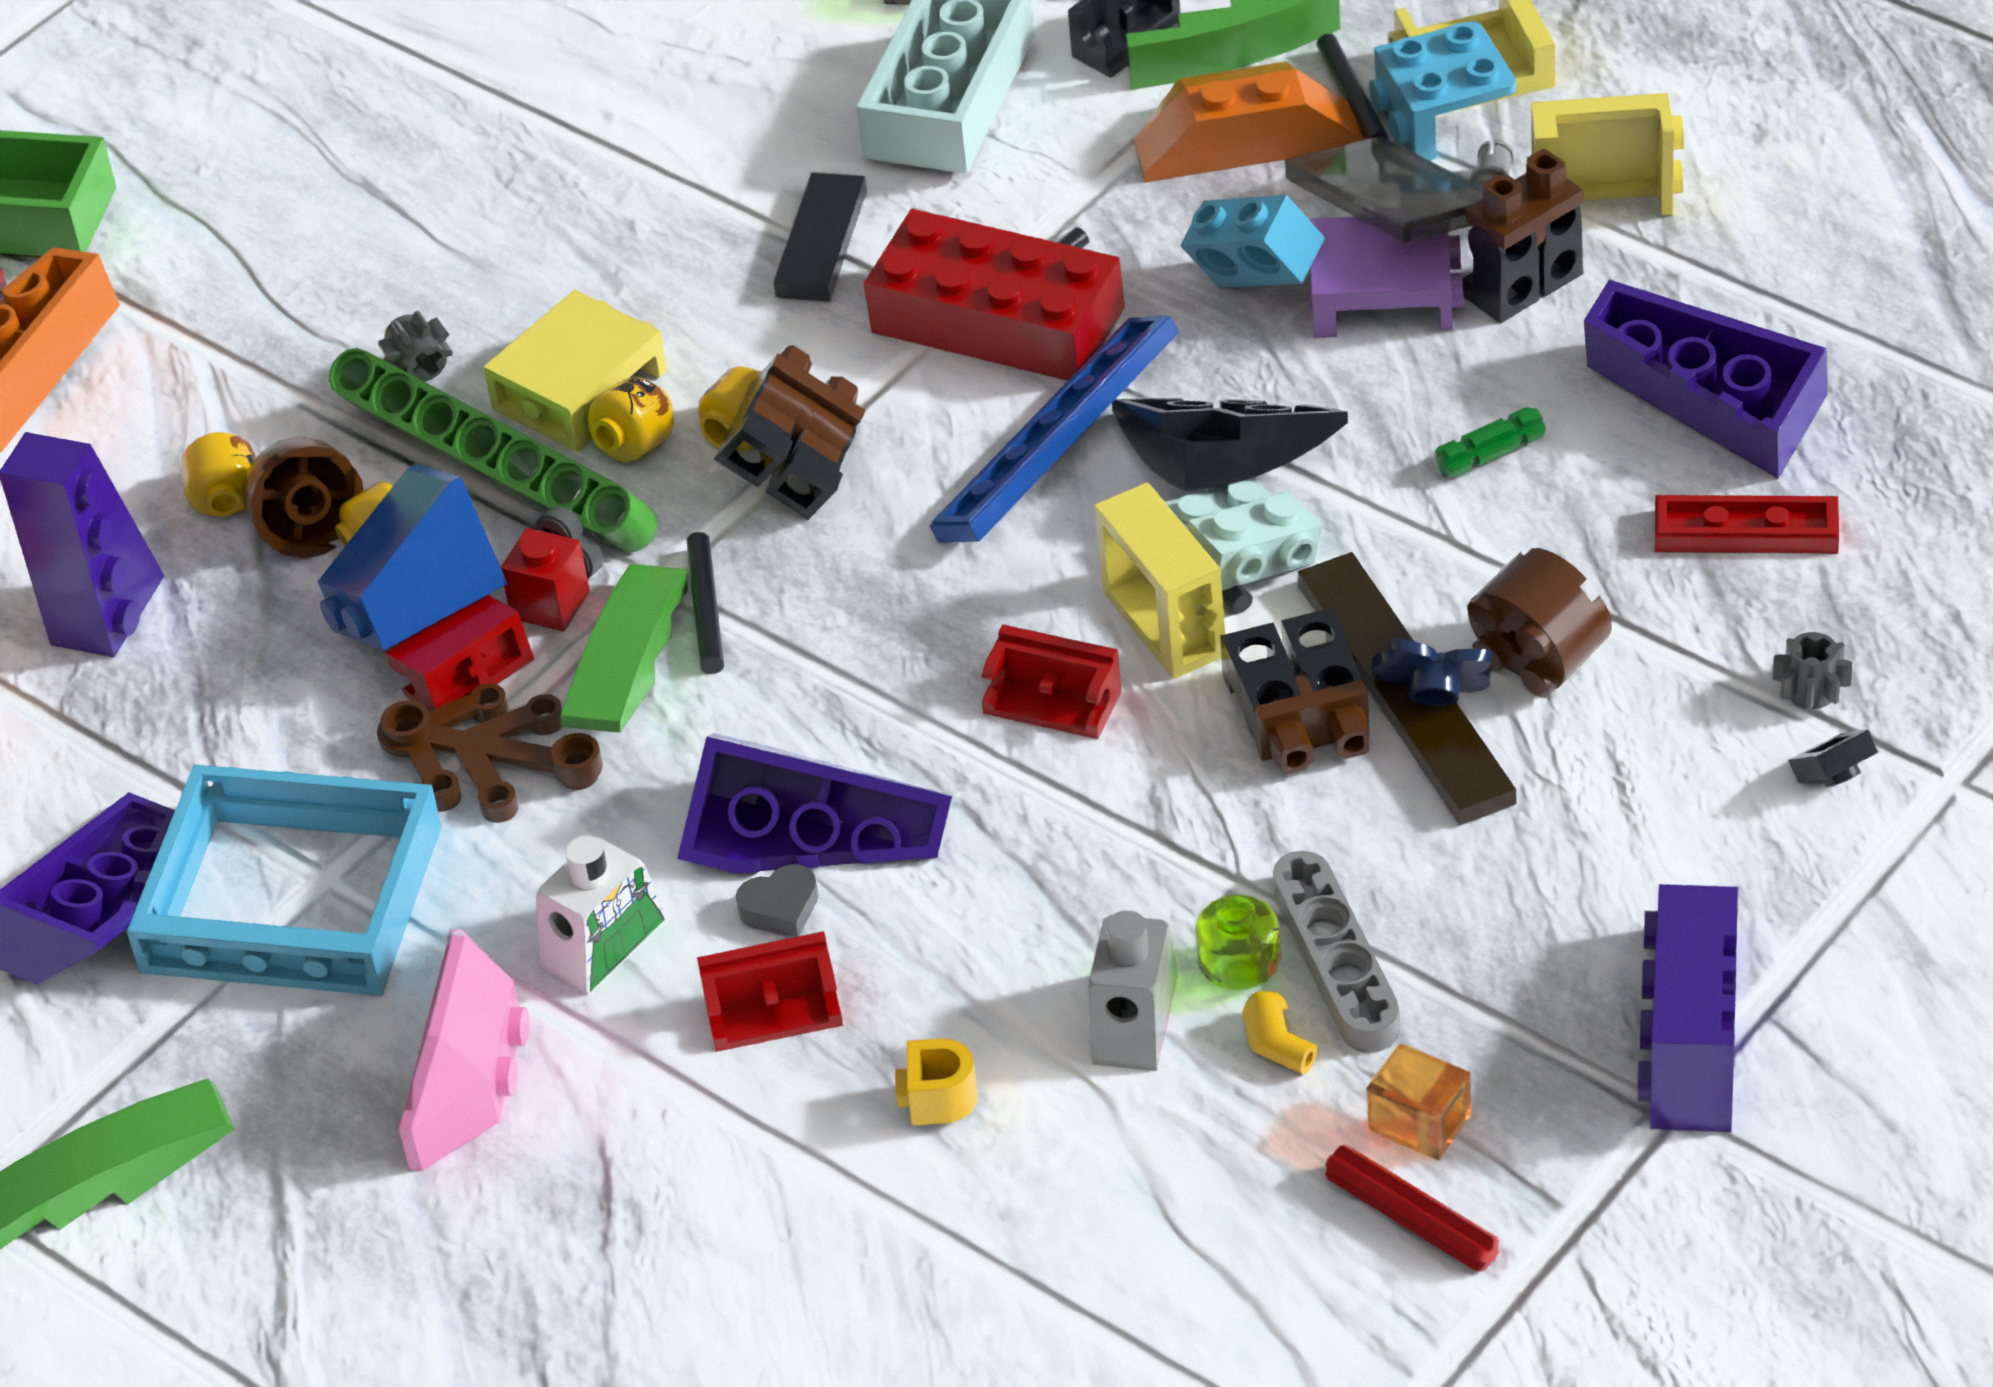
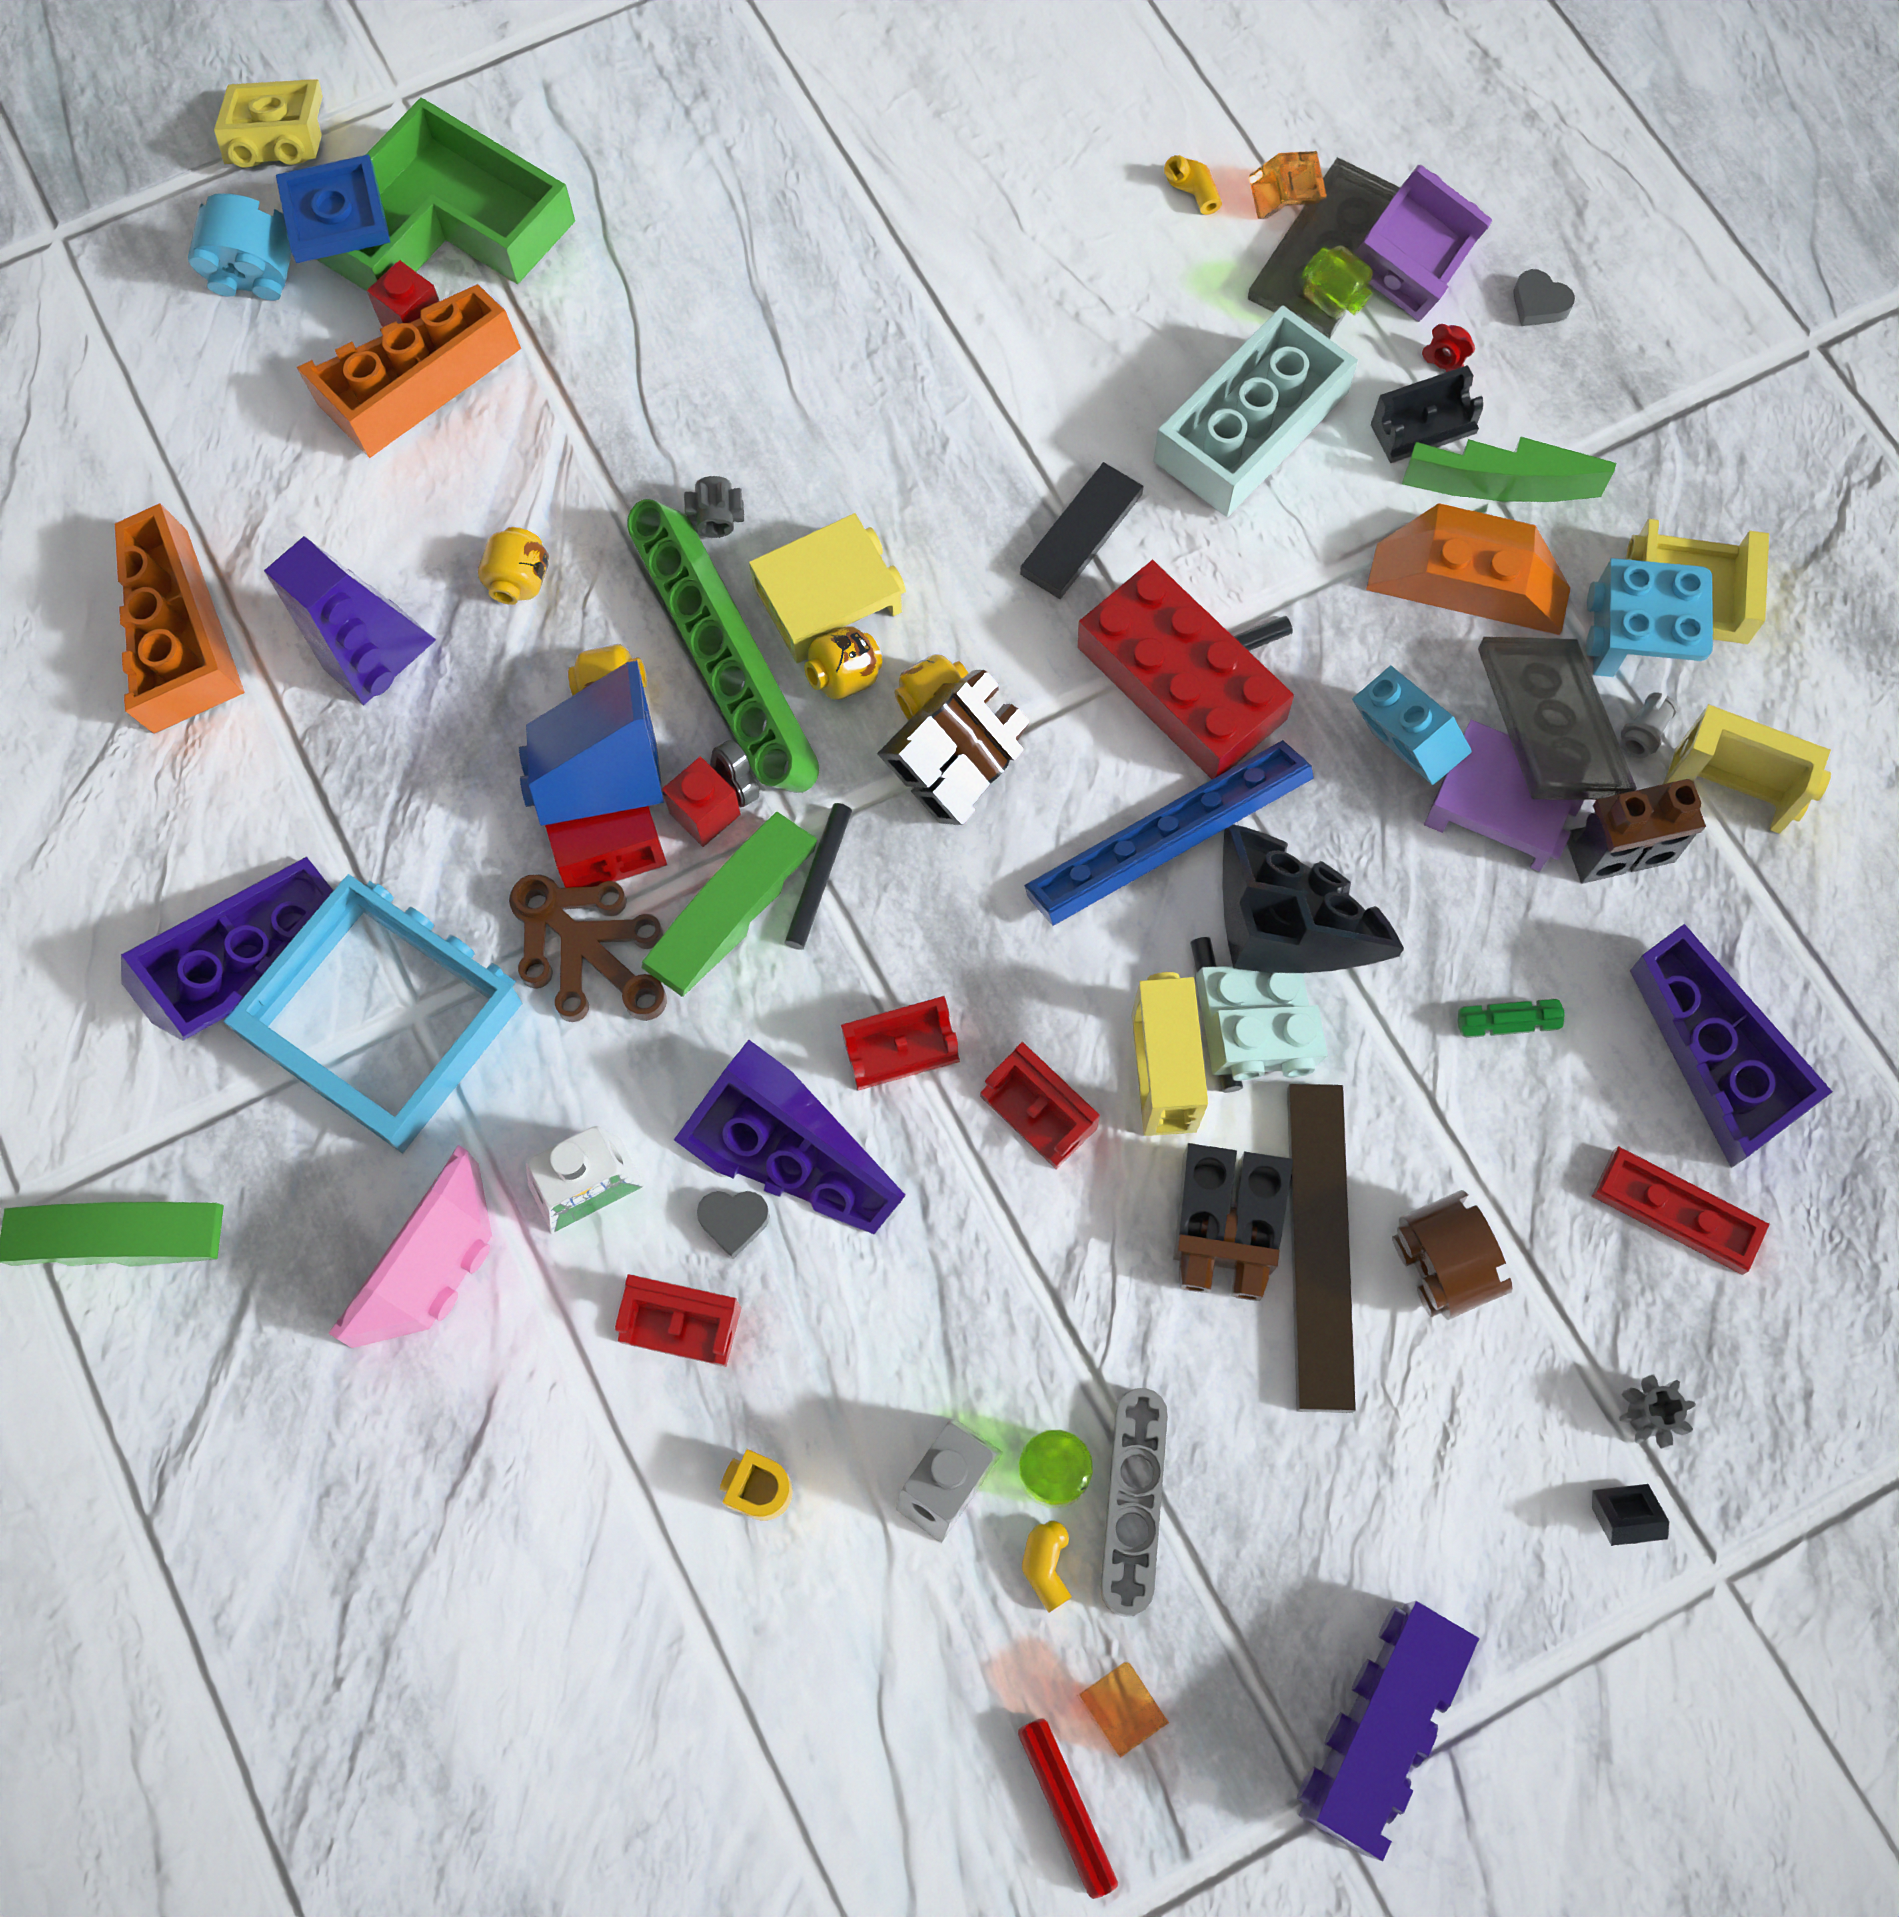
camera: 20 degrees right, 25 degrees up
(297, 494) = (553, 623): reddish brown cylinder -> none
(873, 688) = (900, 1043): none -> red hinge
(1350, 86) = (1577, 573): black bar -> none
(1433, 676) = (1340, 1273): dark blue animal -> none

